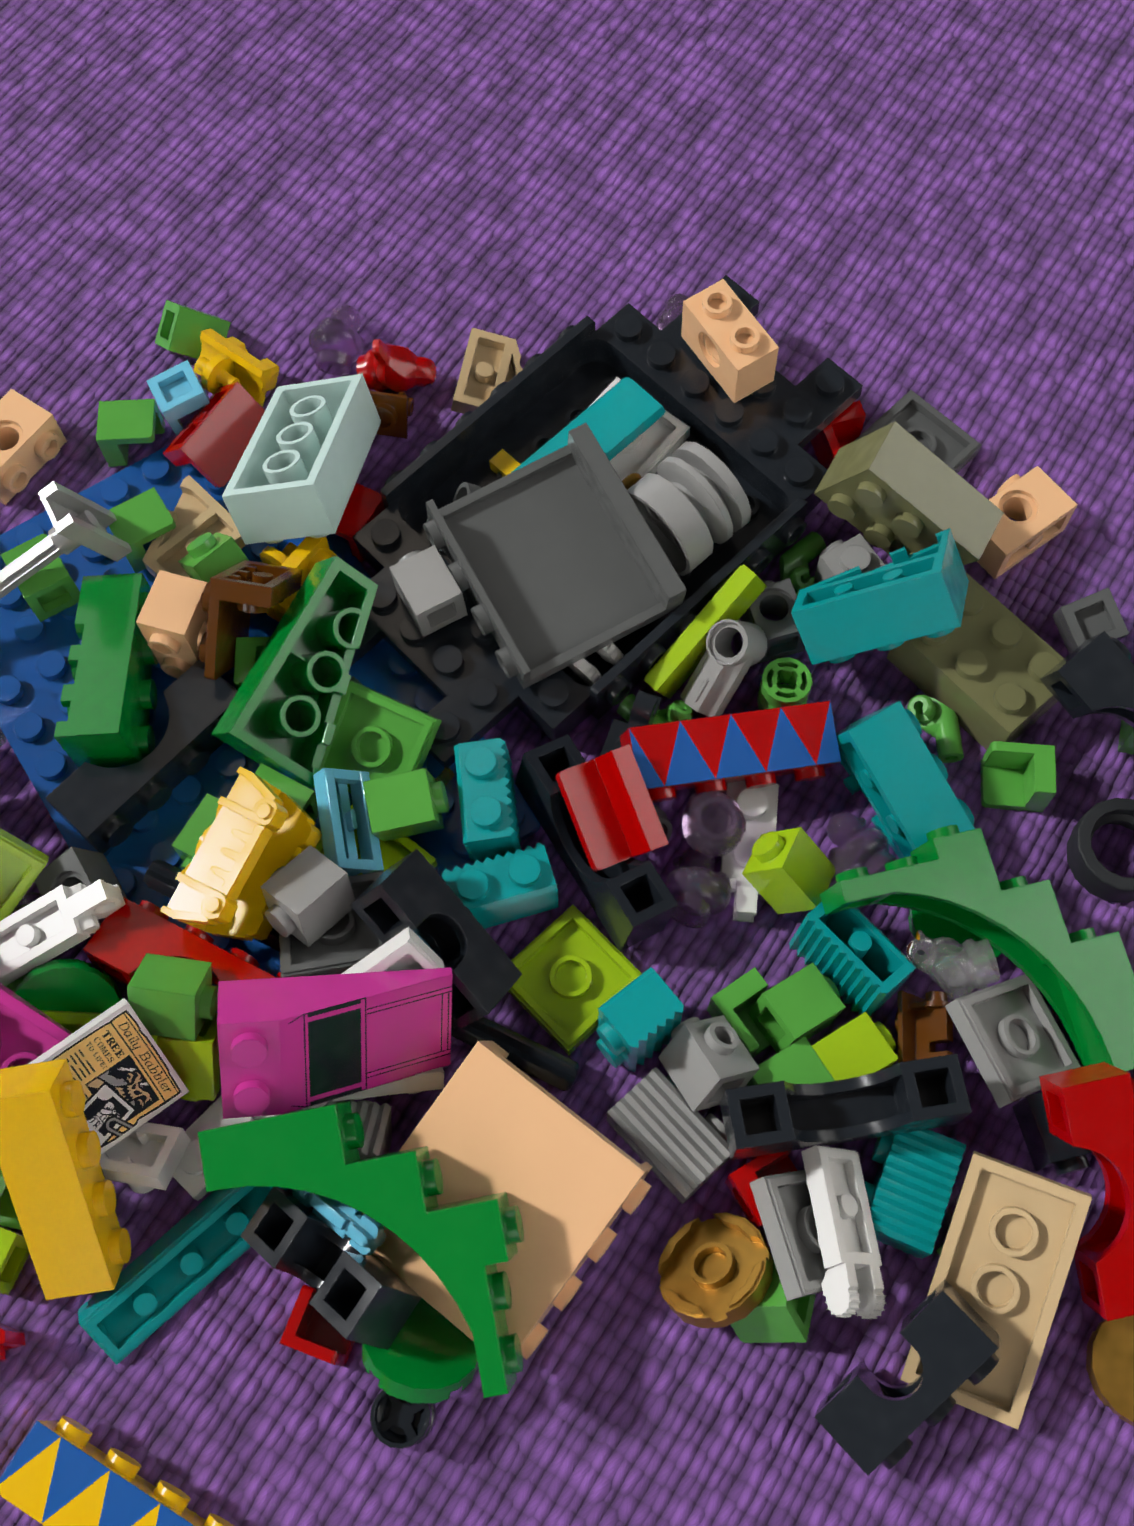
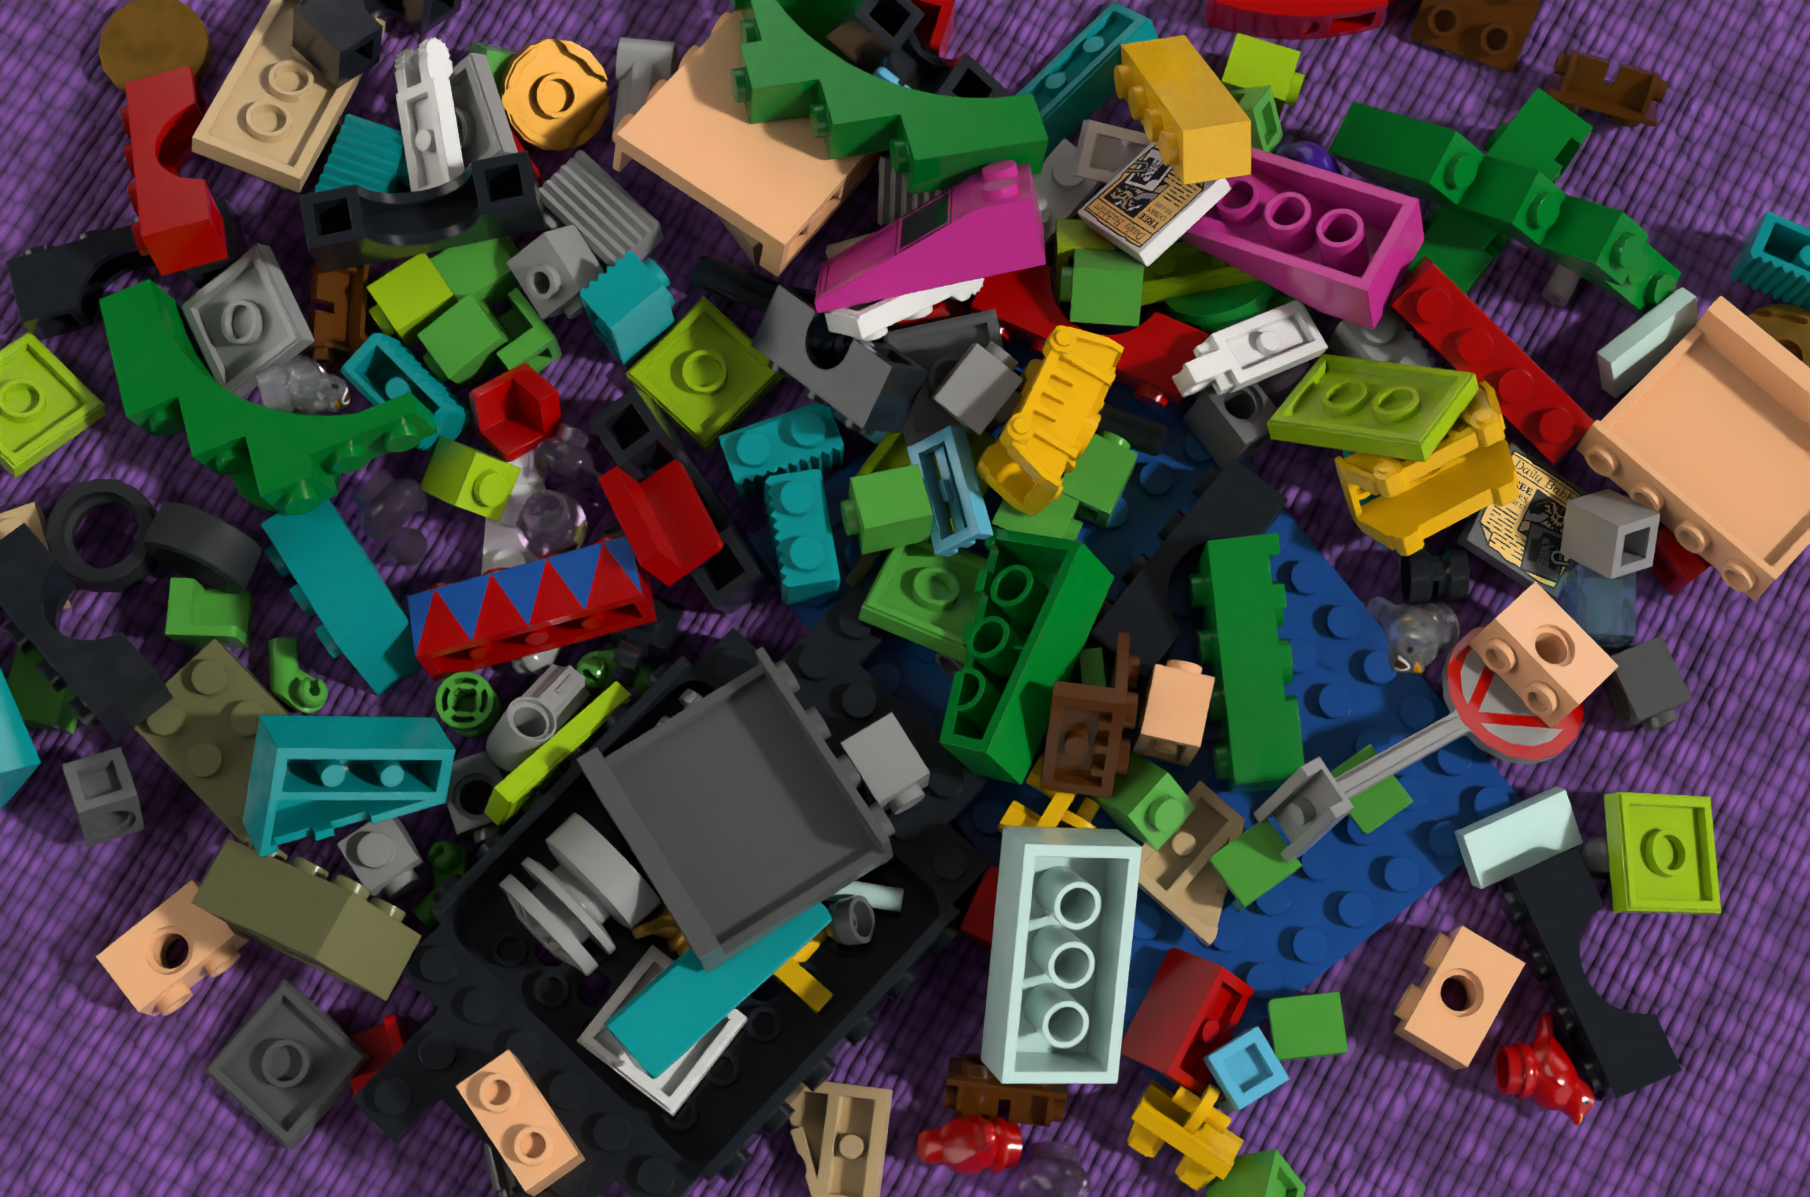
camera: 175 degrees right, 10 degrees up
(620, 1291) = (638, 68): none -> light grey piece
(747, 932) = (515, 412): none -> red panel
(1031, 817) = (202, 547): none -> black tyre

